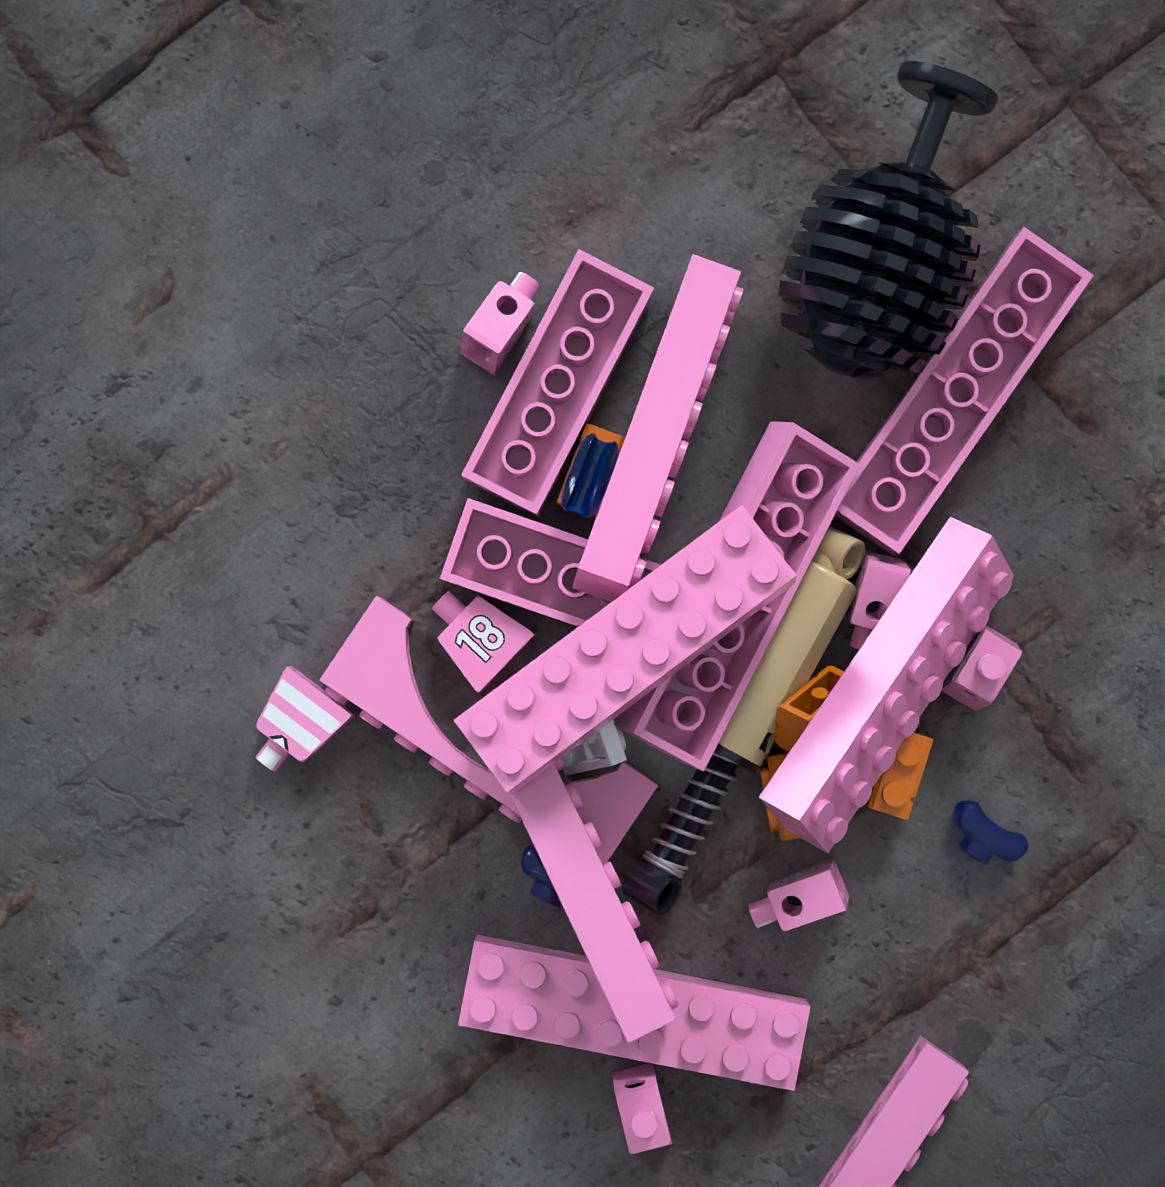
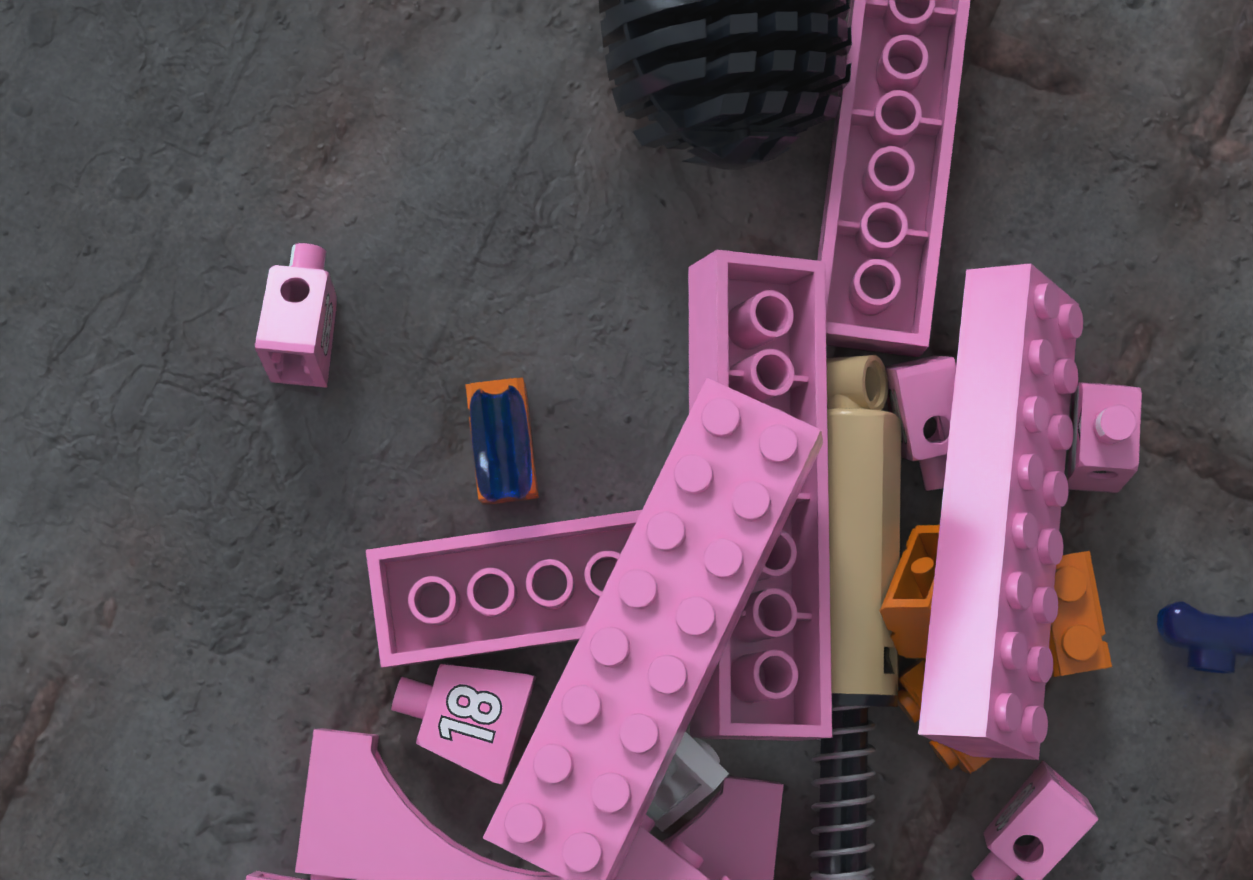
camera: 25 degrees left, 5 degrees down
(558, 383) = (406, 355): bright pink brick -> none
(662, 417) = (559, 348): bright pink brick -> none

